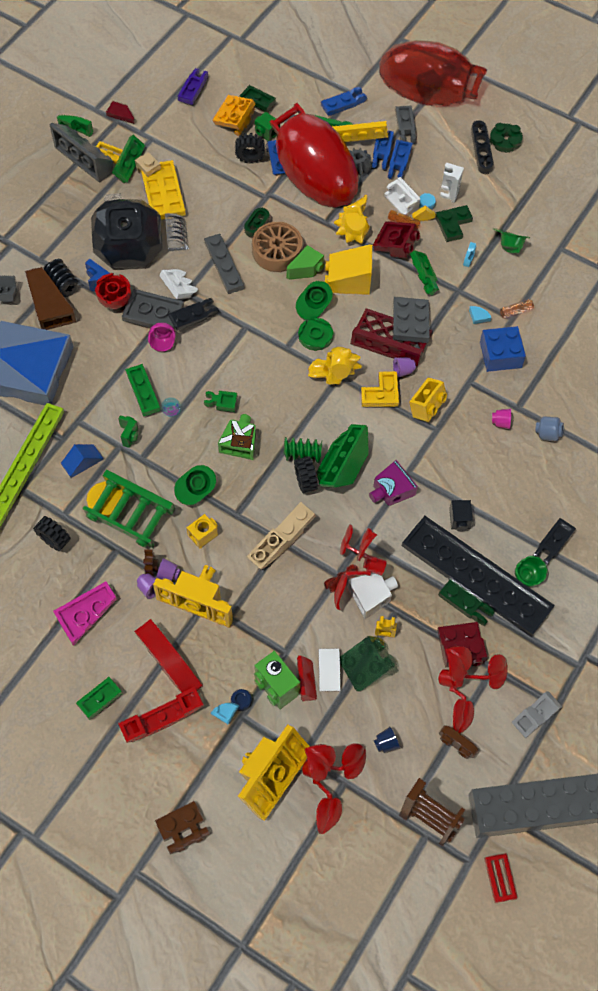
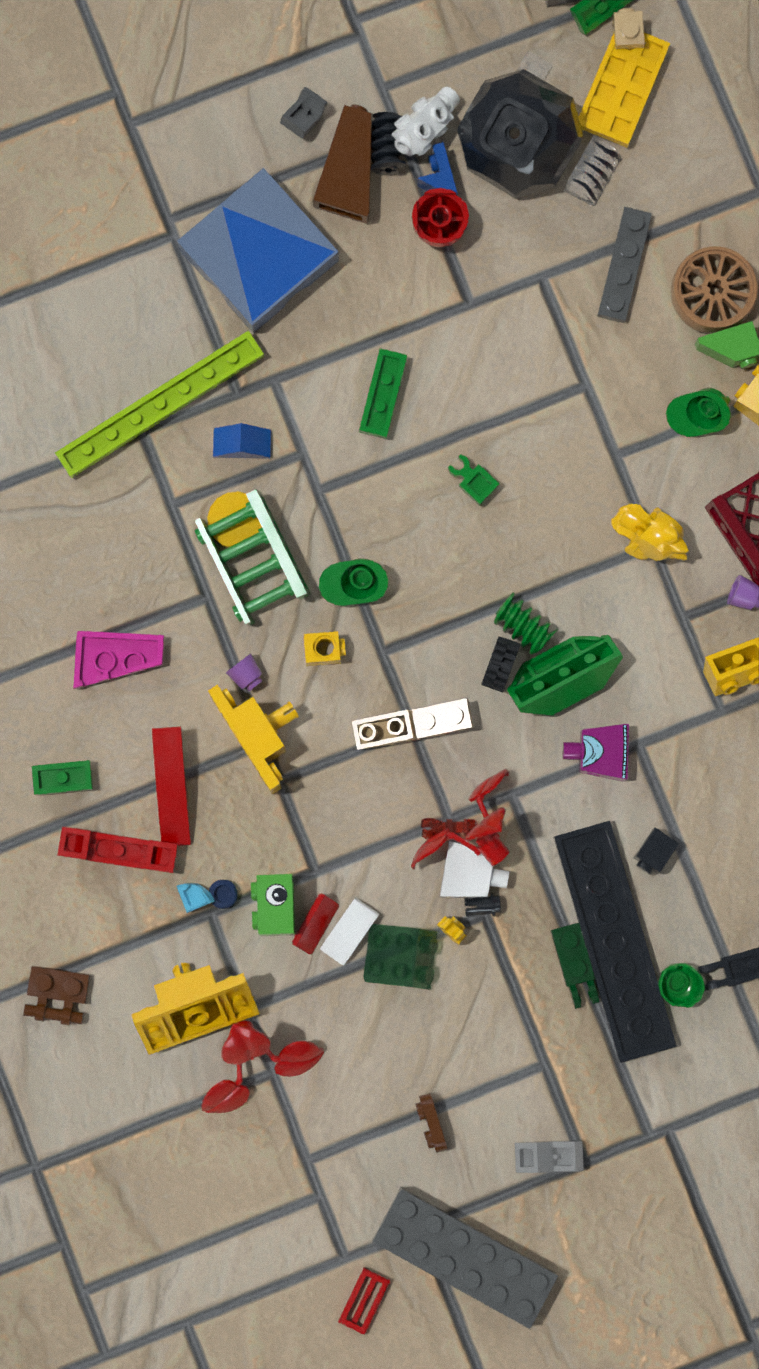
camera: 35 degrees right, 20 degrees up
(52, 533) = (137, 528): black tyre -> none
(73, 255) = (428, 118): none -> white brick
(130, 430) = (325, 448): green bracket -> none
(145, 585) = (209, 674): medium lavender hat -> none
(150, 308) = (476, 279): dark grey plate -> none
(150, 562) = (230, 650): reddish brown plate -> none
(161, 337) = (459, 331): dark pink hair -> none
(170, 407) = (403, 441): clear light blue tile -> none
(177, 283) = (537, 258): white plate -> none
(192, 314) = (521, 322): black hinge -> none
(239, 438) = (457, 550): torso -> none
(254, 221) = (714, 228): dark green plate -> none
(315, 334) = (668, 461): green tile -> none
(383, 396) = (693, 617): yellow plate -> none
(386, 741) = (351, 1063): dark blue hat -> none
(393, 604) = (484, 905): none -> black pin
(431, 812) = (321, 1162): reddish brown fence -> none
(459, 662) = (484, 1046): red plant -> none
(463, 635) = (528, 1013): dark red plate -> none

